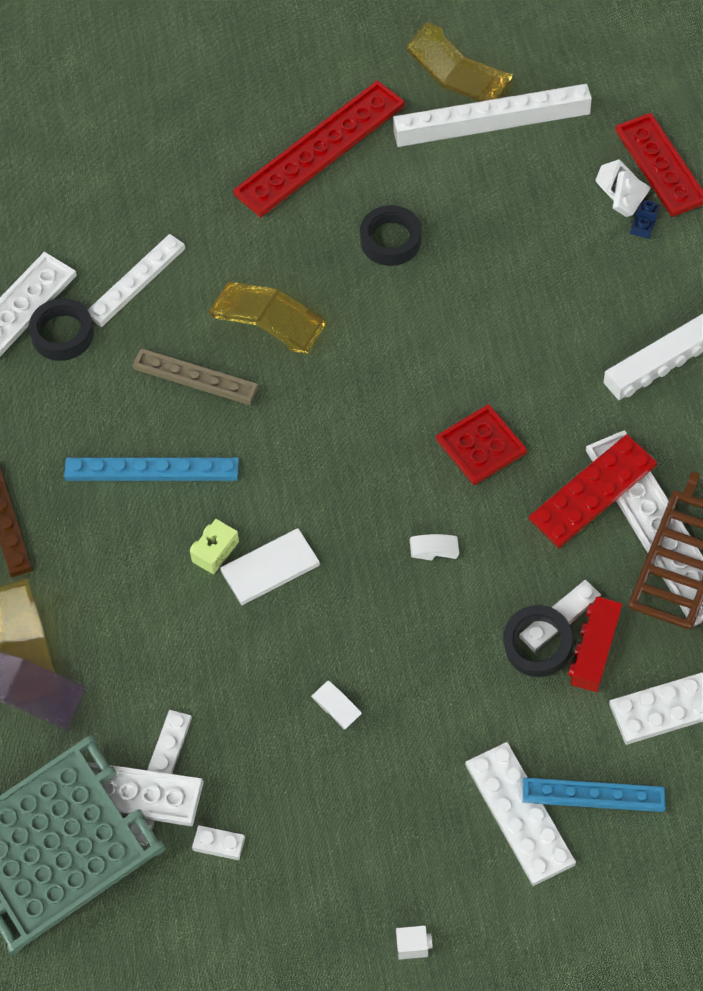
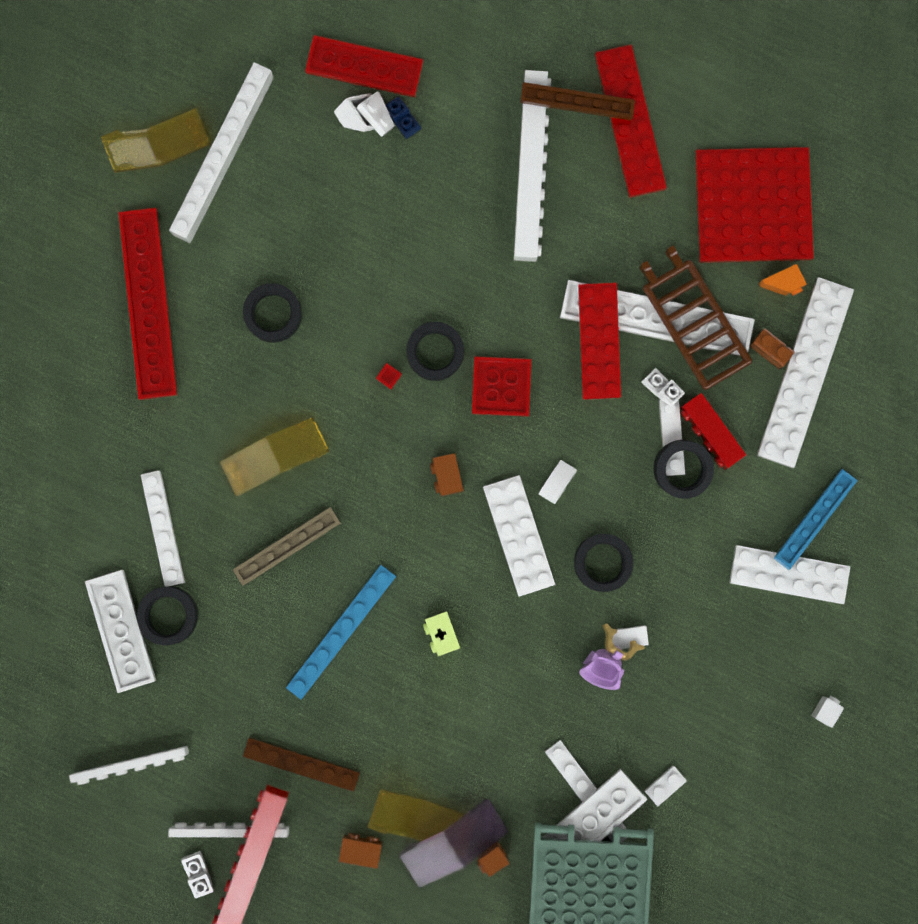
camera: 60 degrees left, 25 degrees up
(31, 725) = (493, 859): none -> dark orange brick
(269, 566) = (485, 605): white tile -> none
(291, 700) = (604, 665): none -> lavender helmet
(357, 552) = (519, 535): none -> white plate
(363, 454) = (447, 475): none -> dark orange brick
(390, 610) = (620, 546): none -> black tyre
(412, 353) = (388, 376): none -> red plate
(472, 351) = (435, 328): none -> black tyre
(598, 573) = (665, 390): none -> white slope

